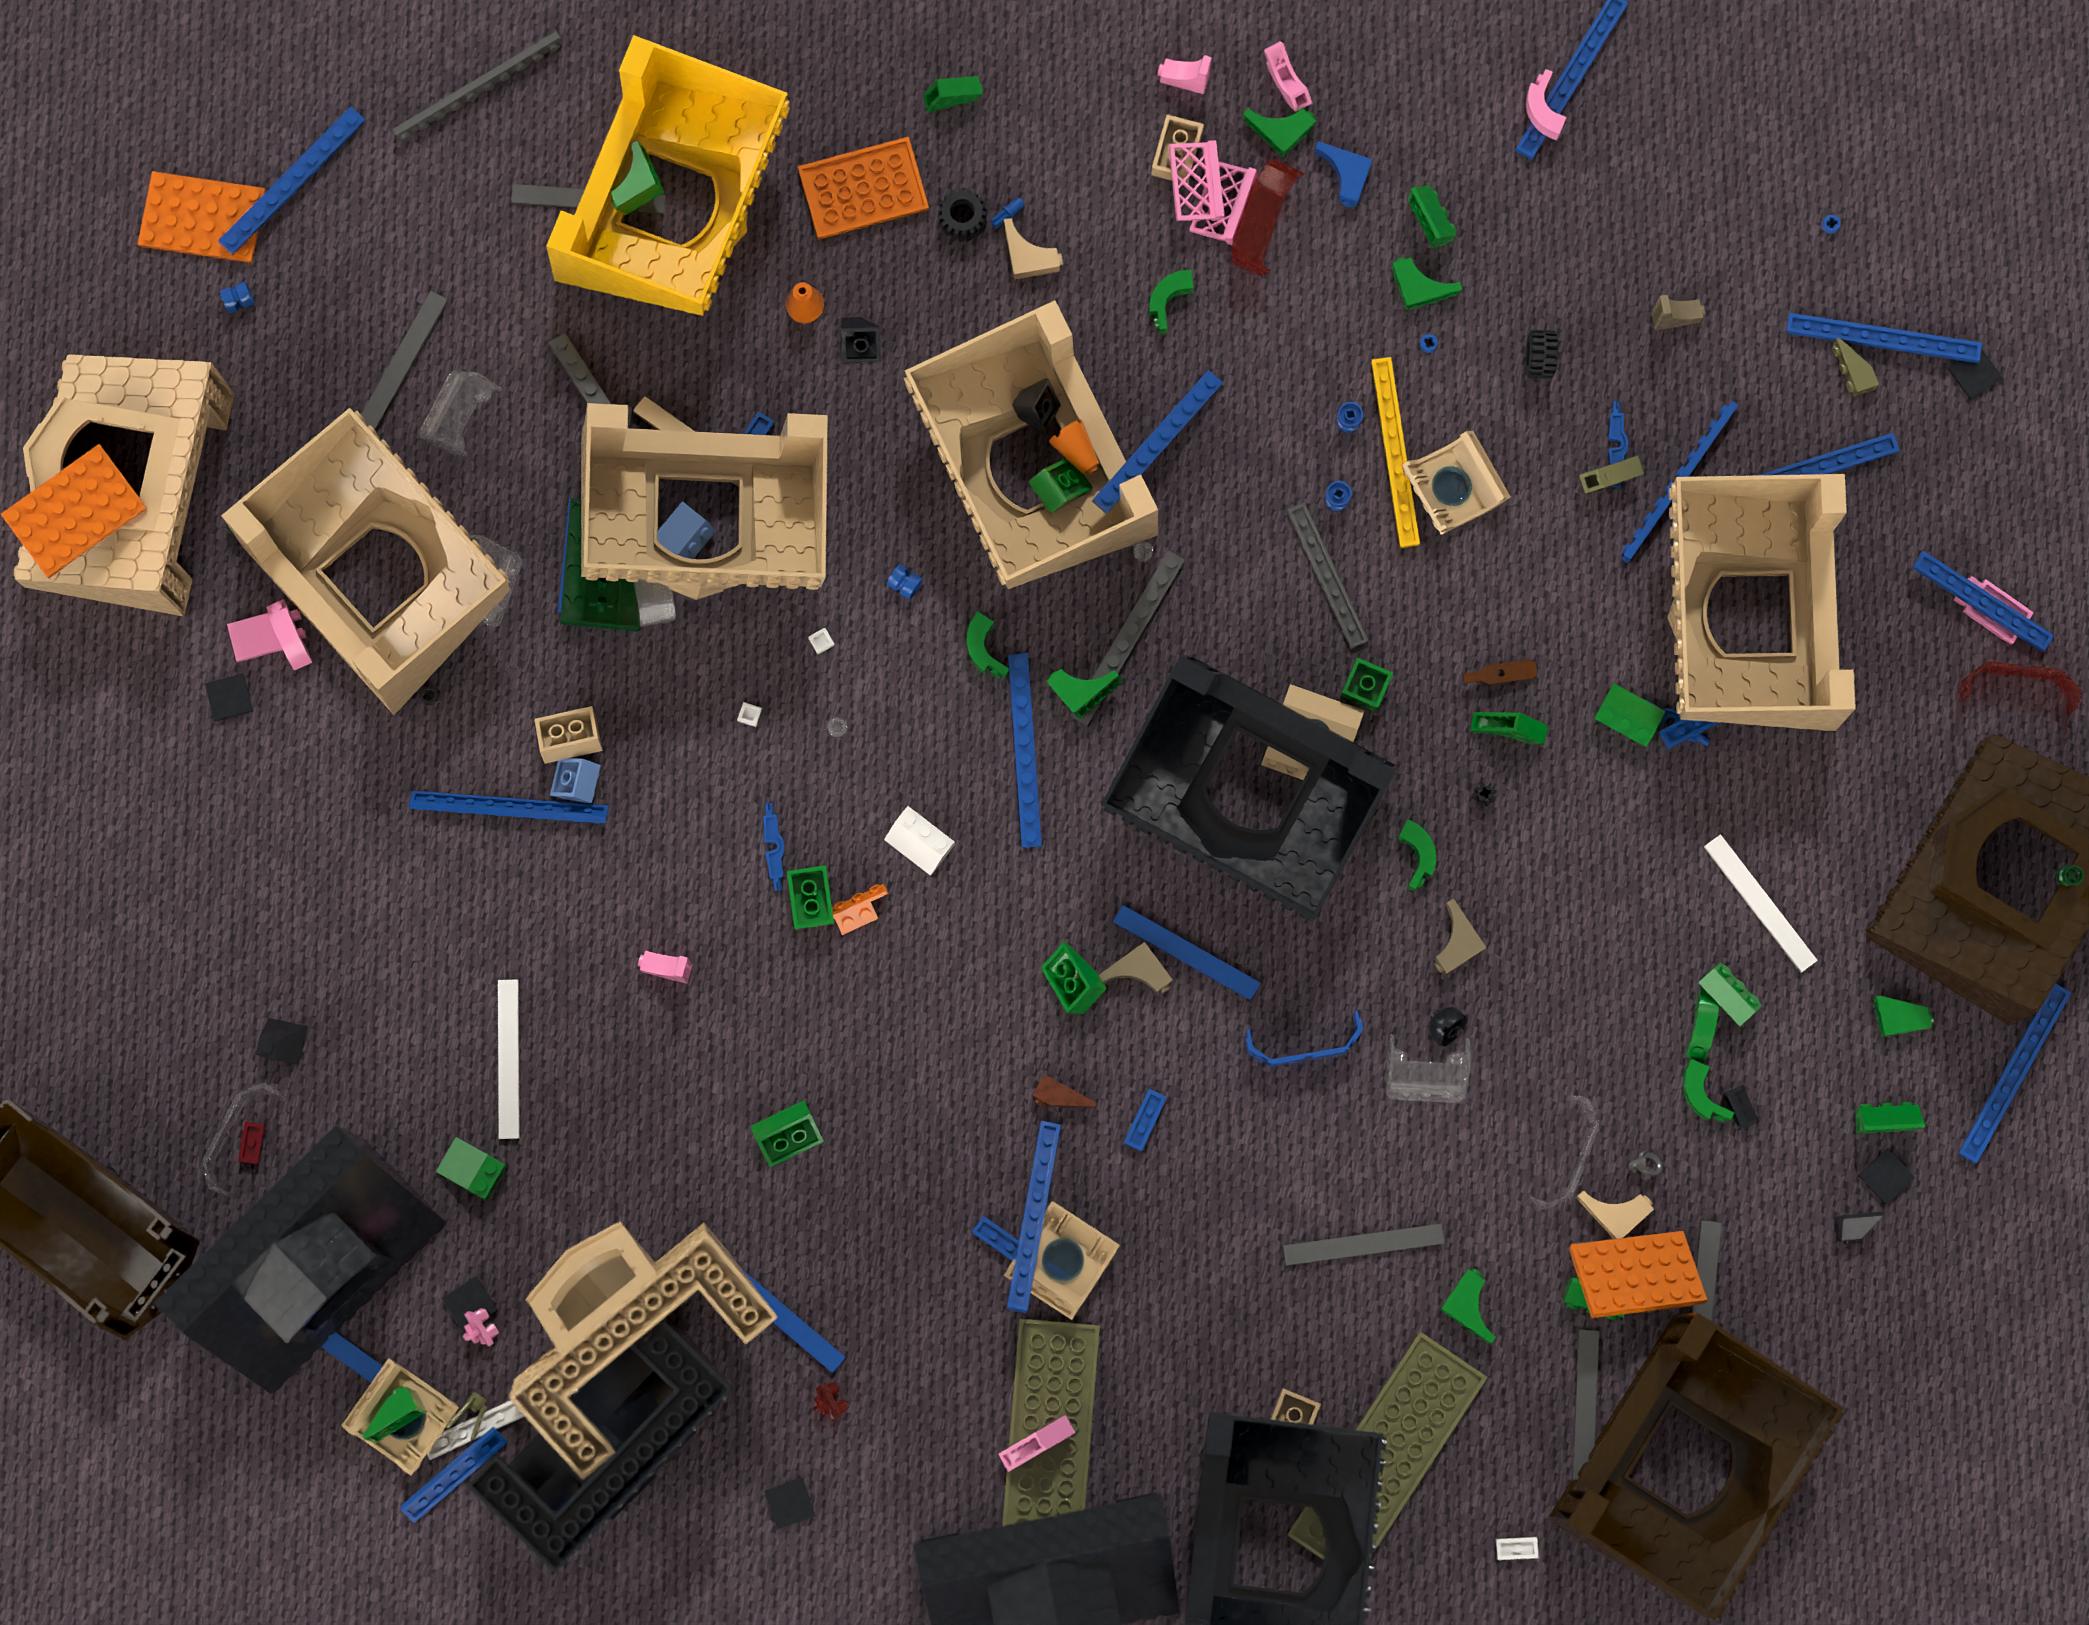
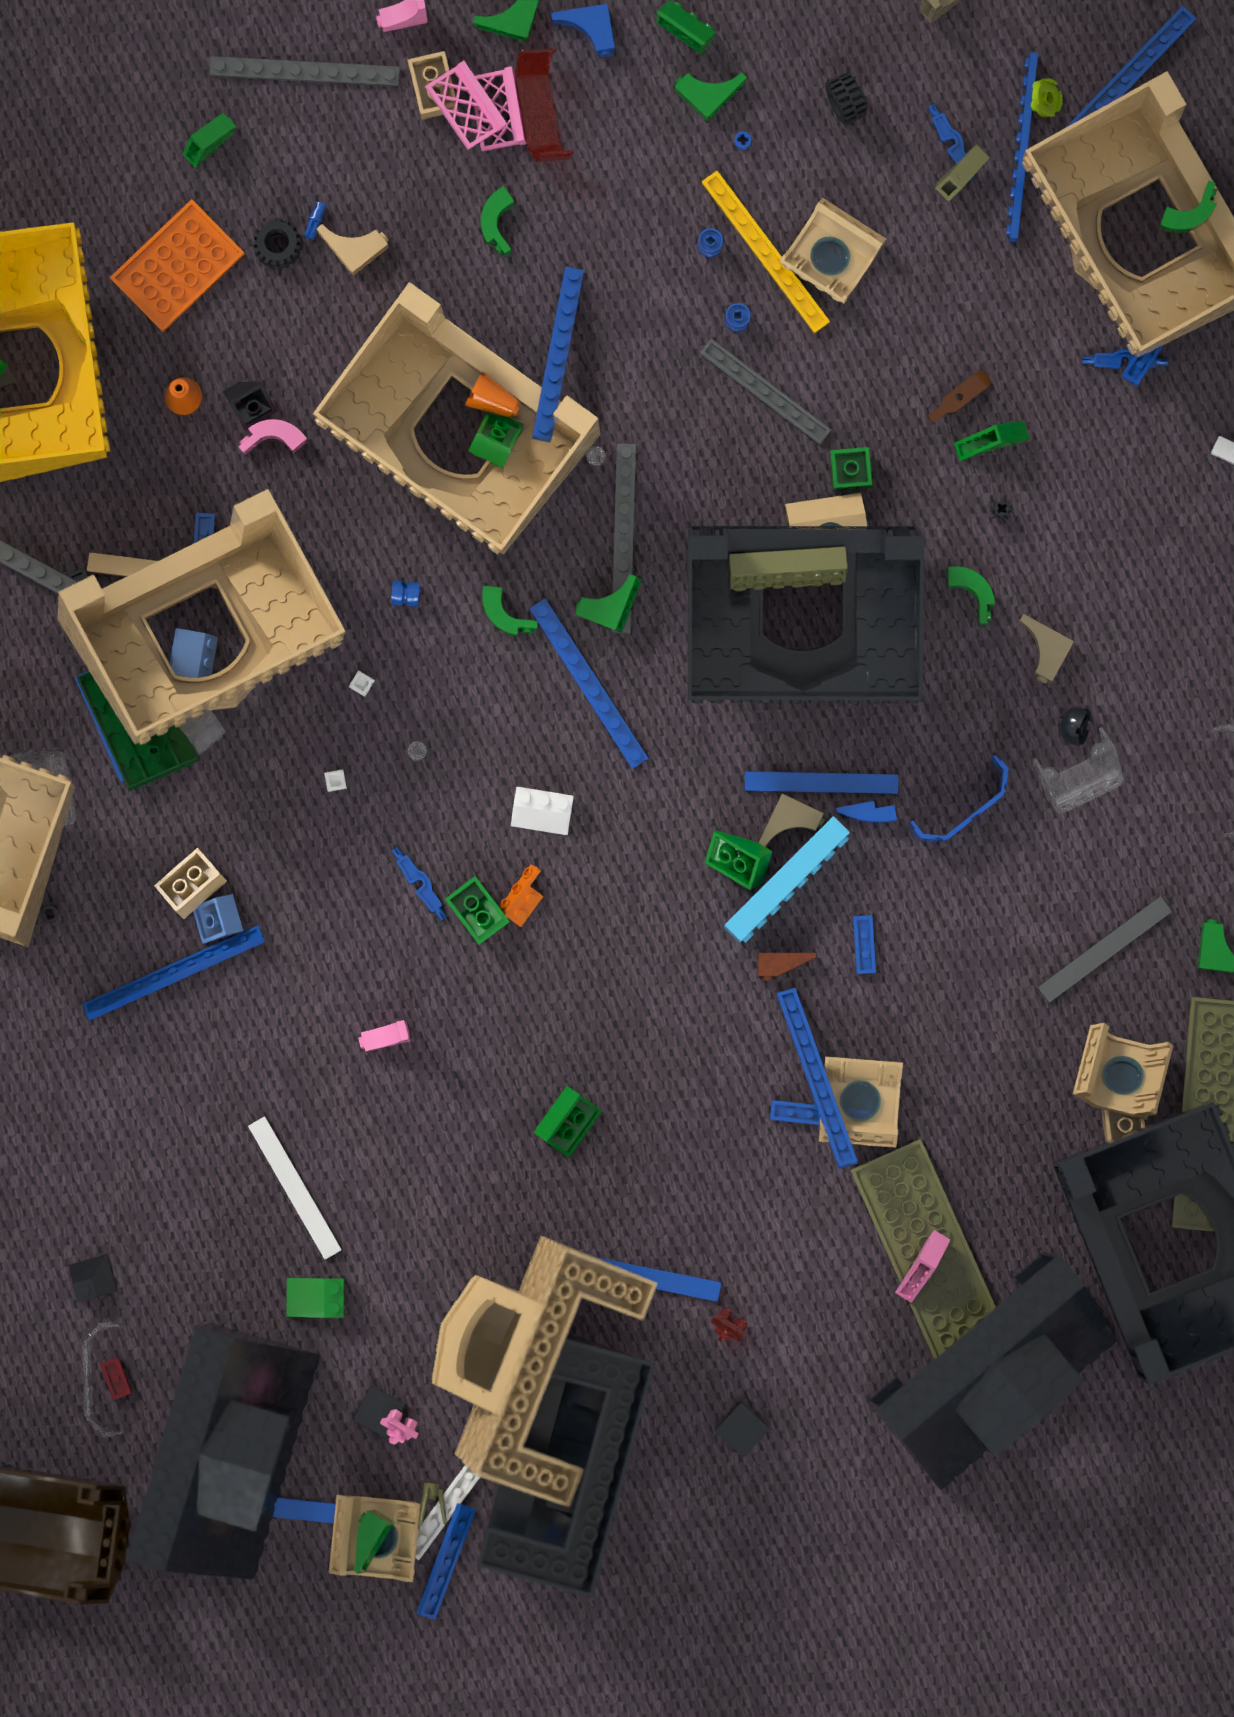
camera: 30 degrees left, 5 degrees up
(867, 375) = (273, 430): none -> bright pink arch
(1037, 405) = (437, 378): black slope -> none
(1071, 79) = (304, 71): none -> dark grey plate
(1105, 1022) = (789, 877): none -> medium azure brick
(1213, 1002) = (868, 813): none -> blue slope
(1258, 738) = (787, 568): none -> olive brick
(1316, 1366) = (1122, 1073): none -> tan panel
(1629, 715) = (1088, 374): green slope -> none
(1728, 440) = (1041, 91): none -> lime plate
(1797, 624) = (1186, 221): none -> green arch

